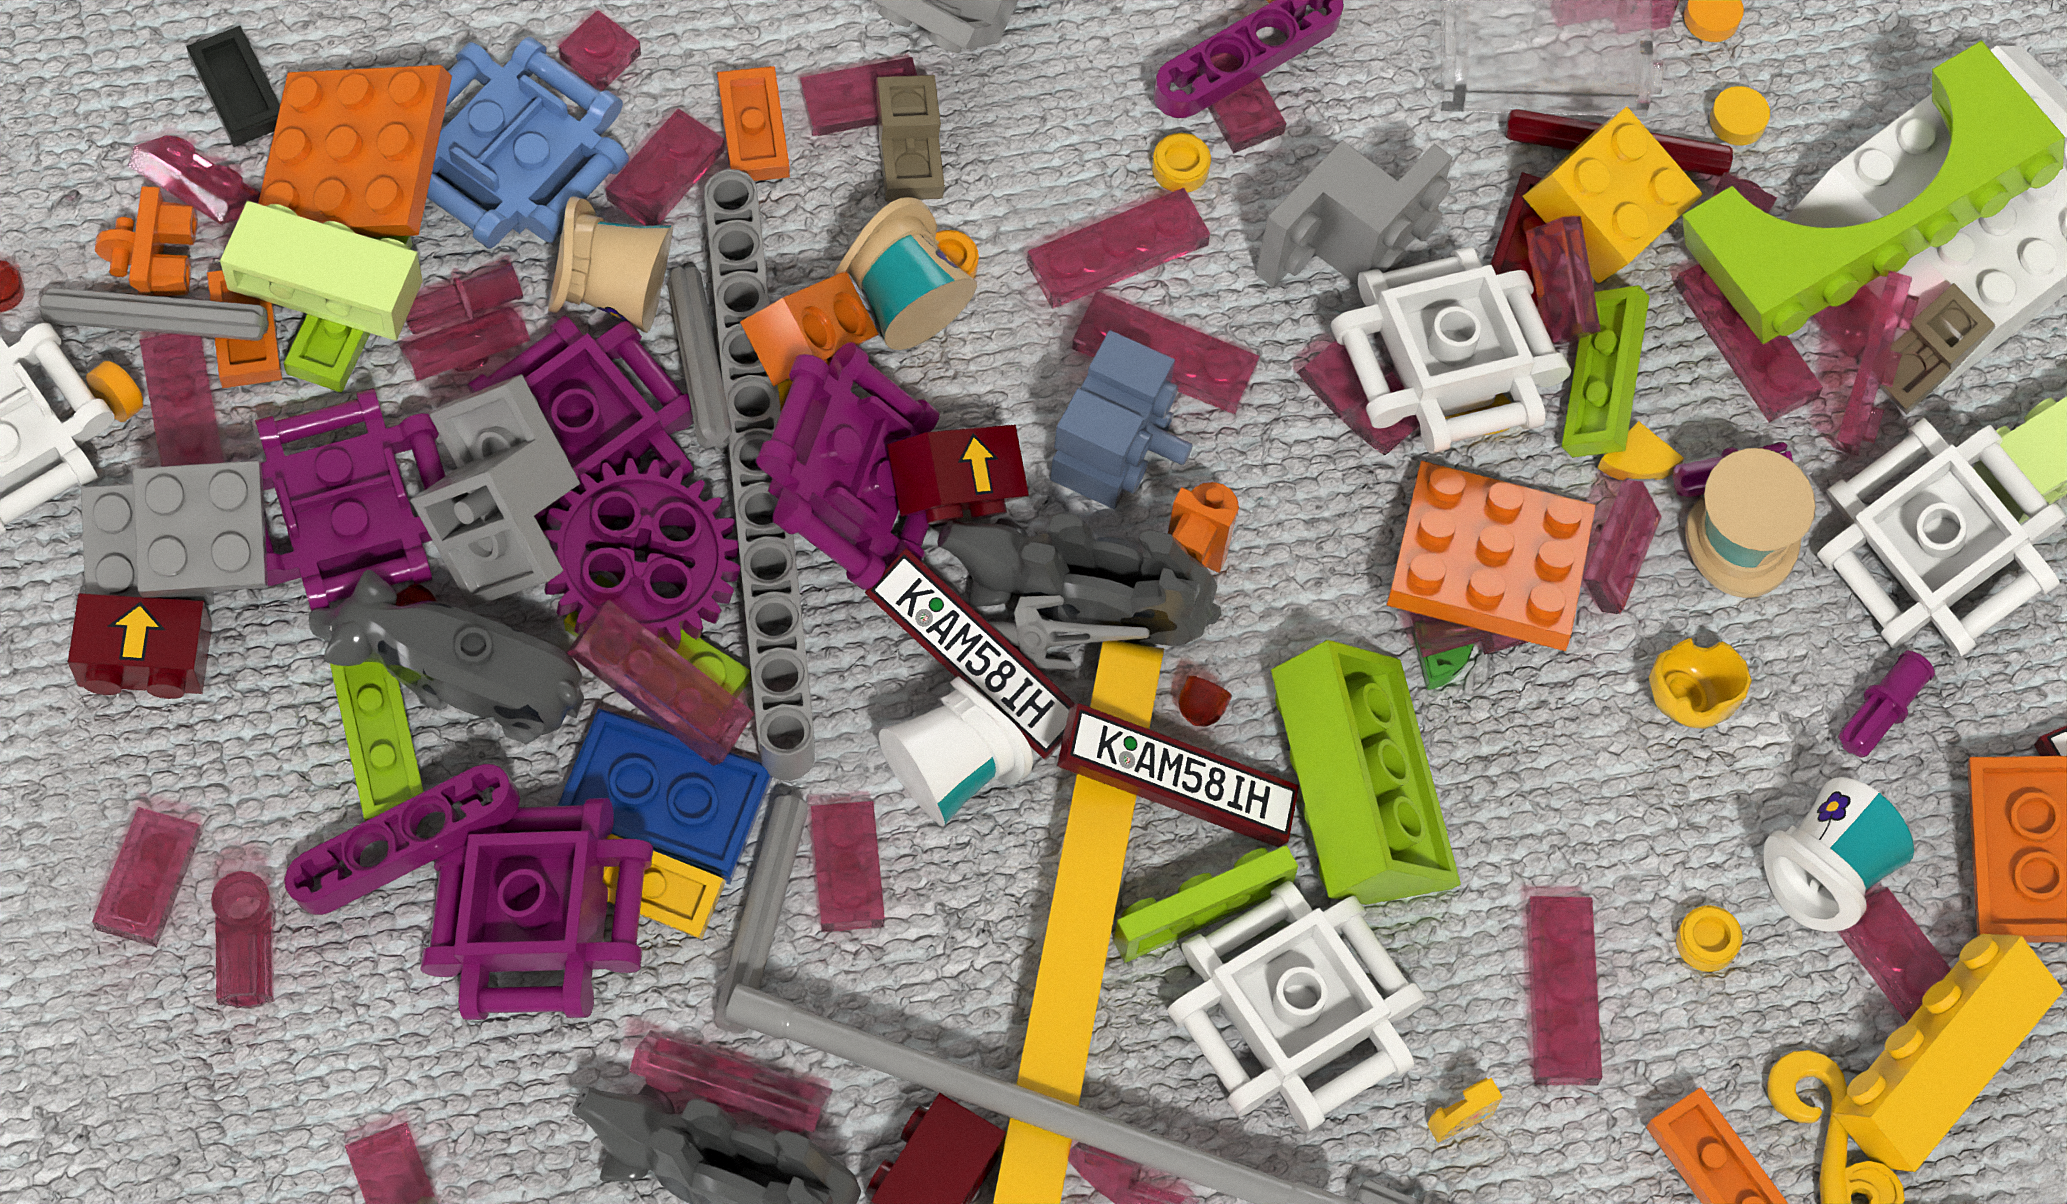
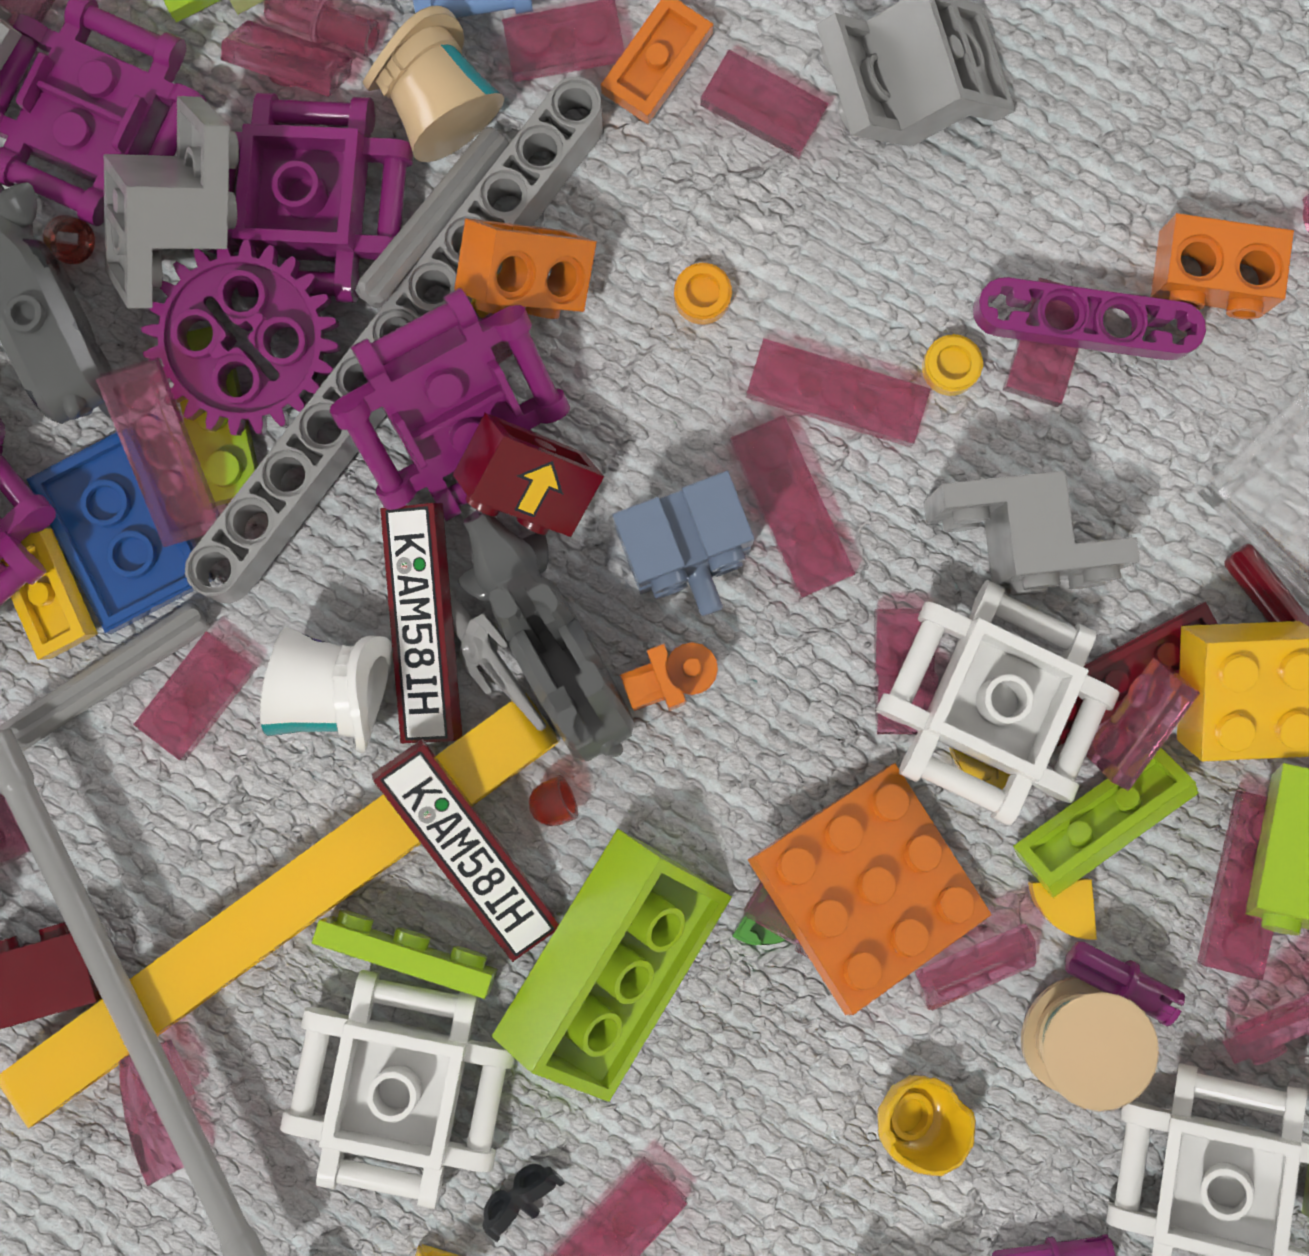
camera: 55 degrees right, 20 degrees up
(907, 274) = (643, 281): tan hat -> none
(910, 137) = (763, 169): dark tan slope -> none
(1463, 1025) = (528, 1186): none -> black piece

